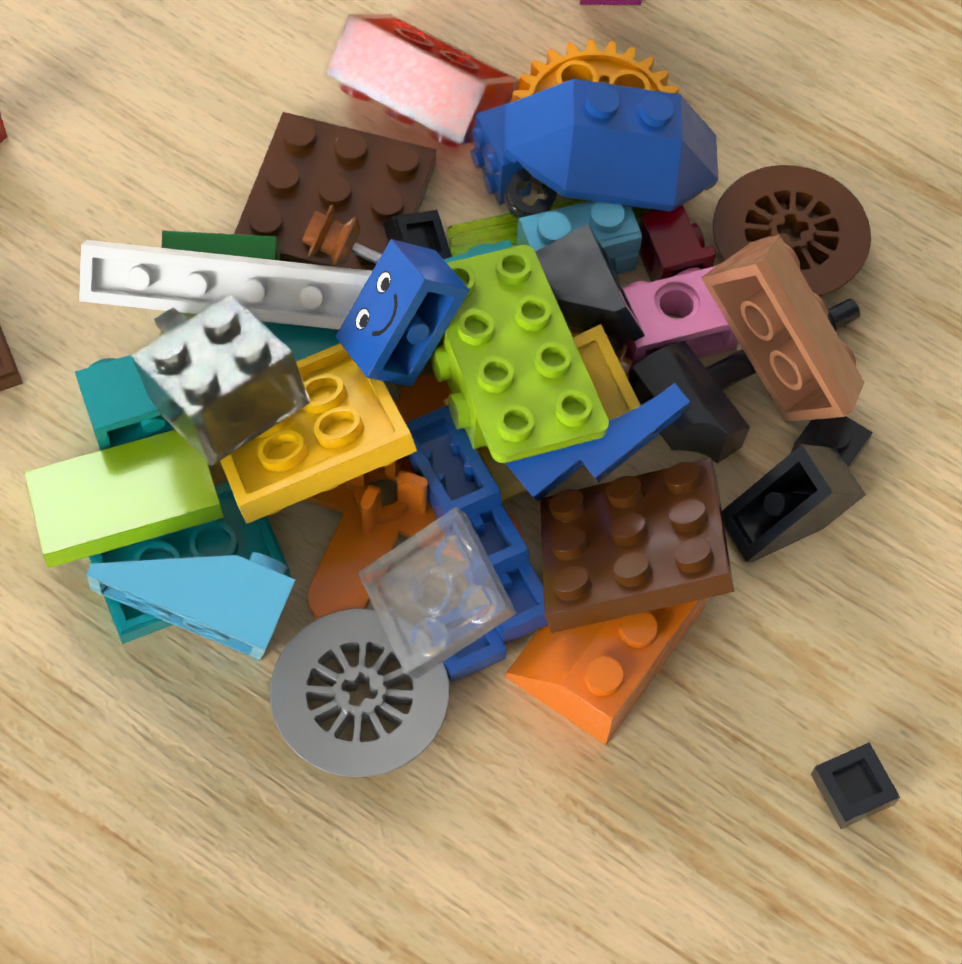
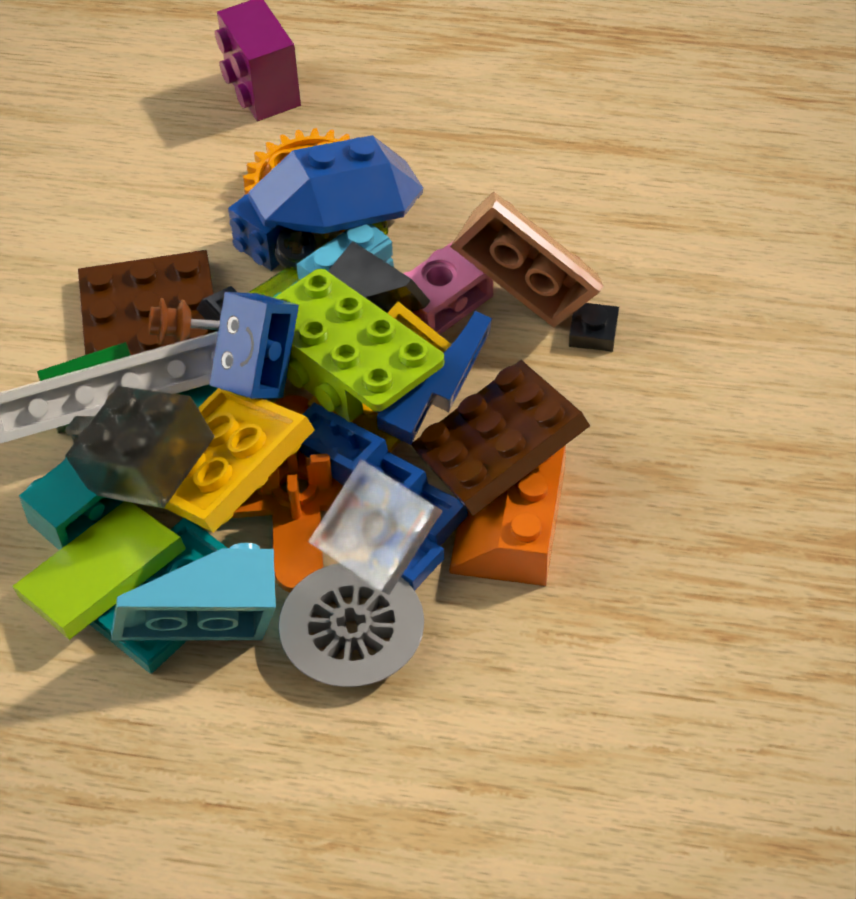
camera: 20 degrees left, 10 degrees down
(417, 76) = (166, 208): clear red slope -> none
(672, 244) = (413, 241): dark red brick -> none
(713, 422) = (506, 340): black piece -> none
(791, 501) = (593, 366): black slope -> none
(819, 195) = (472, 182): reddish brown piece -> none
(855, 785) = (735, 532): black plate -> none

